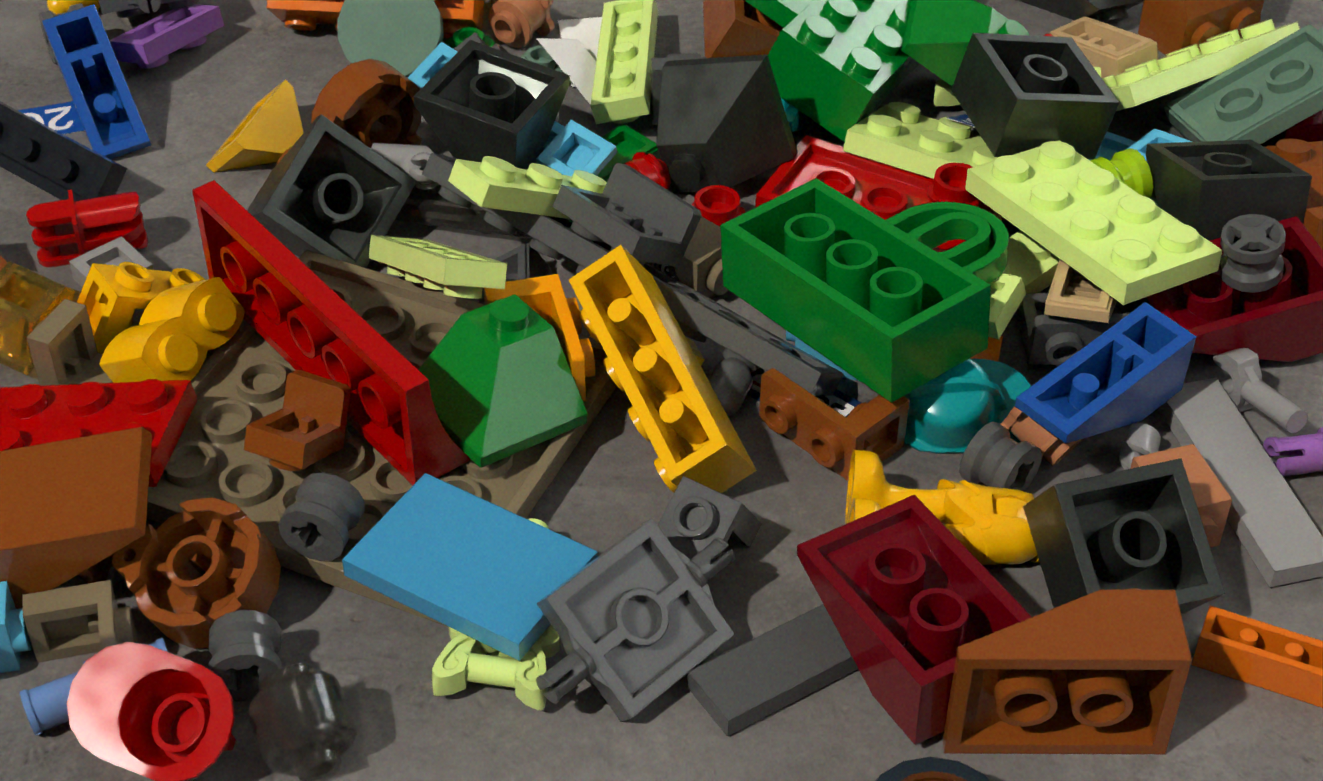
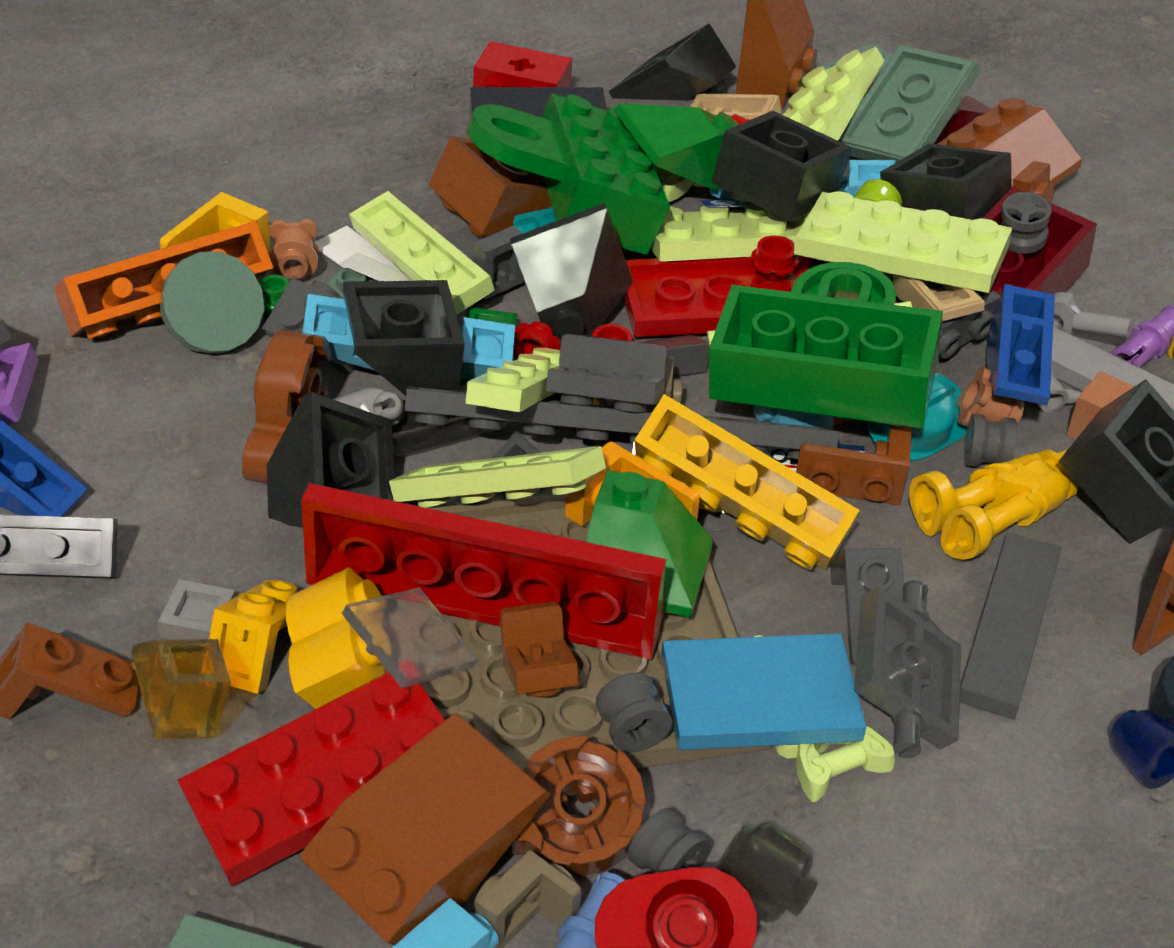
camera: 40 degrees left, 0 degrees up
(66, 348) = (264, 705): dark tan bracket -> none
(76, 227) = (134, 587): red arm -> none
(209, 358) = (410, 637): none -> clear piece
(263, 133) = (179, 437): yellow slope -> none
(904, 605) = (1070, 567): dark red slope -> none

